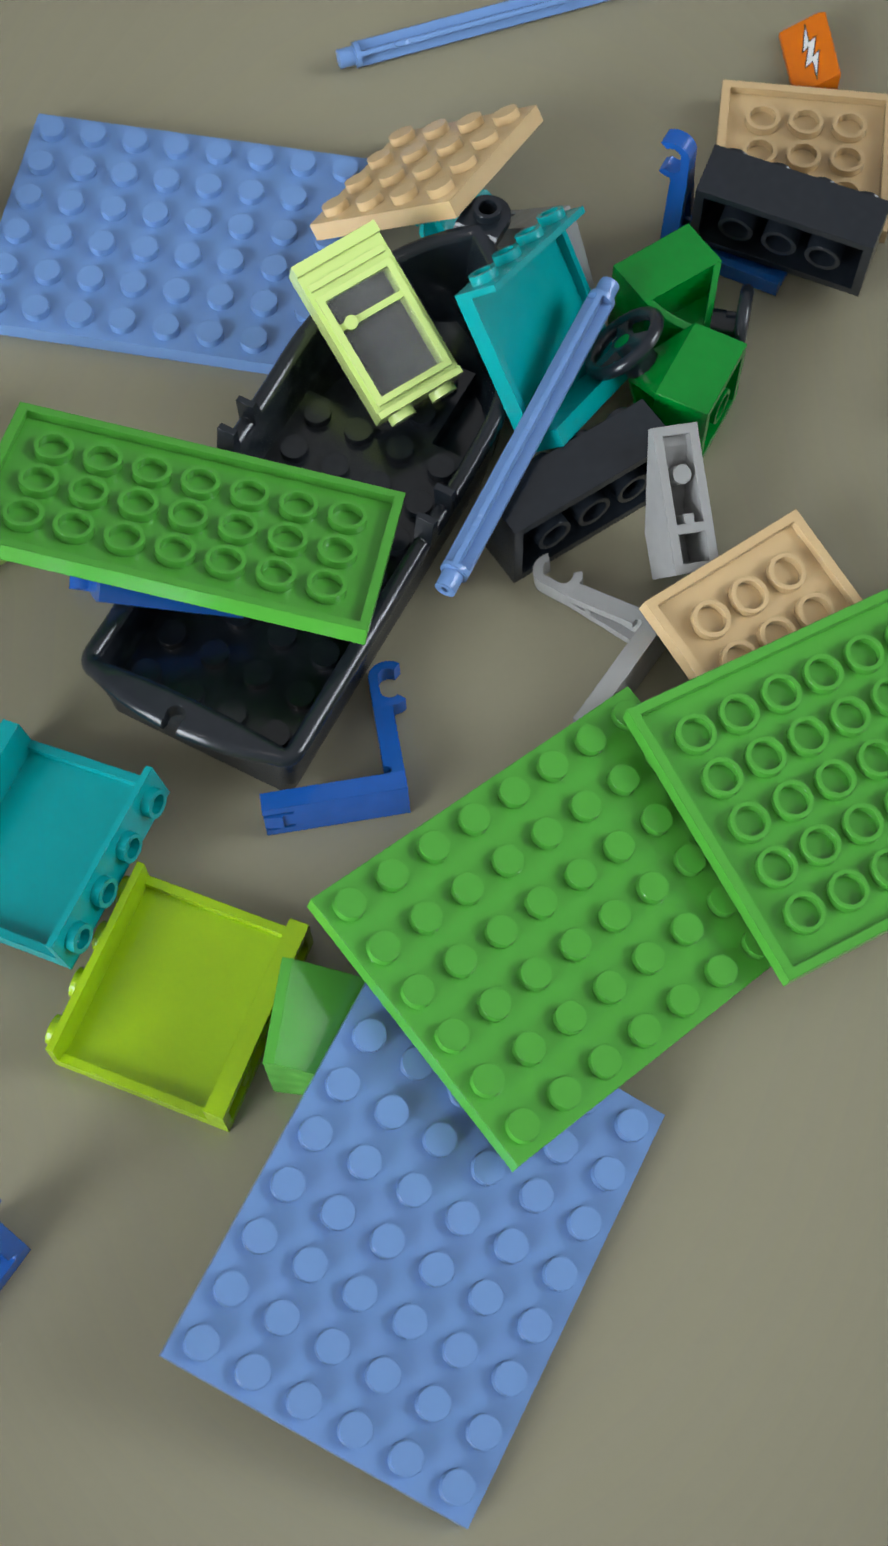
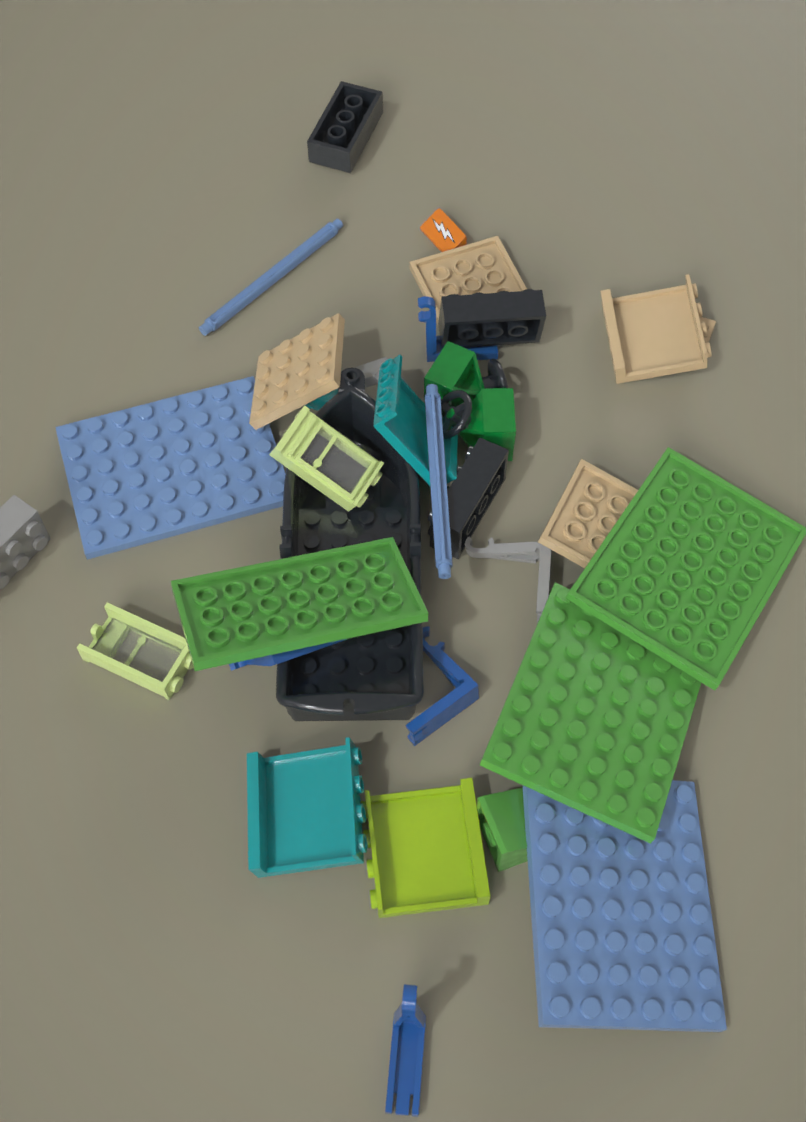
camera: 30 degrees left, 5 degrees down
(677, 503) = (525, 484): light grey slope -> none

